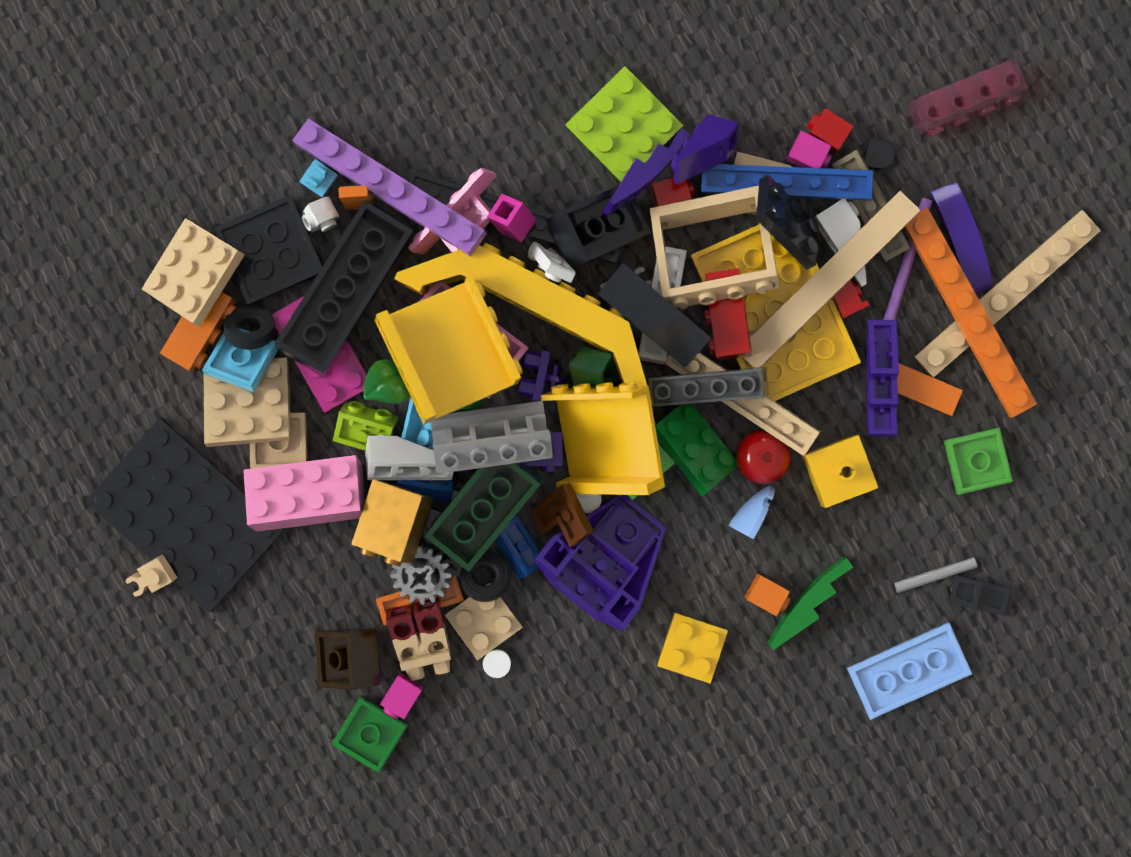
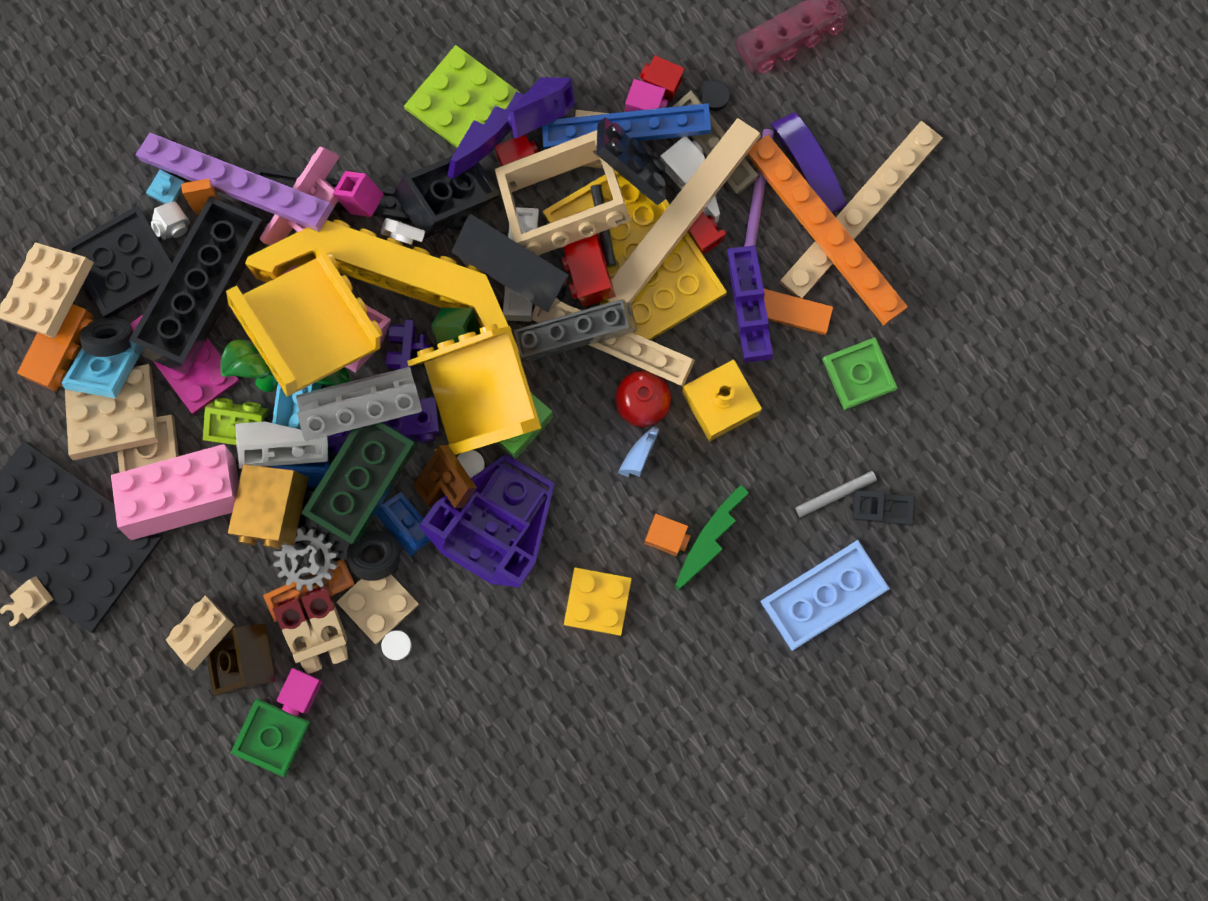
camera: 10 degrees left, 10 degrees down
(313, 629) = (199, 632): none -> tan plate
(695, 447) = (571, 395): green plate -> none
(748, 267) = (605, 236): none -> black bar

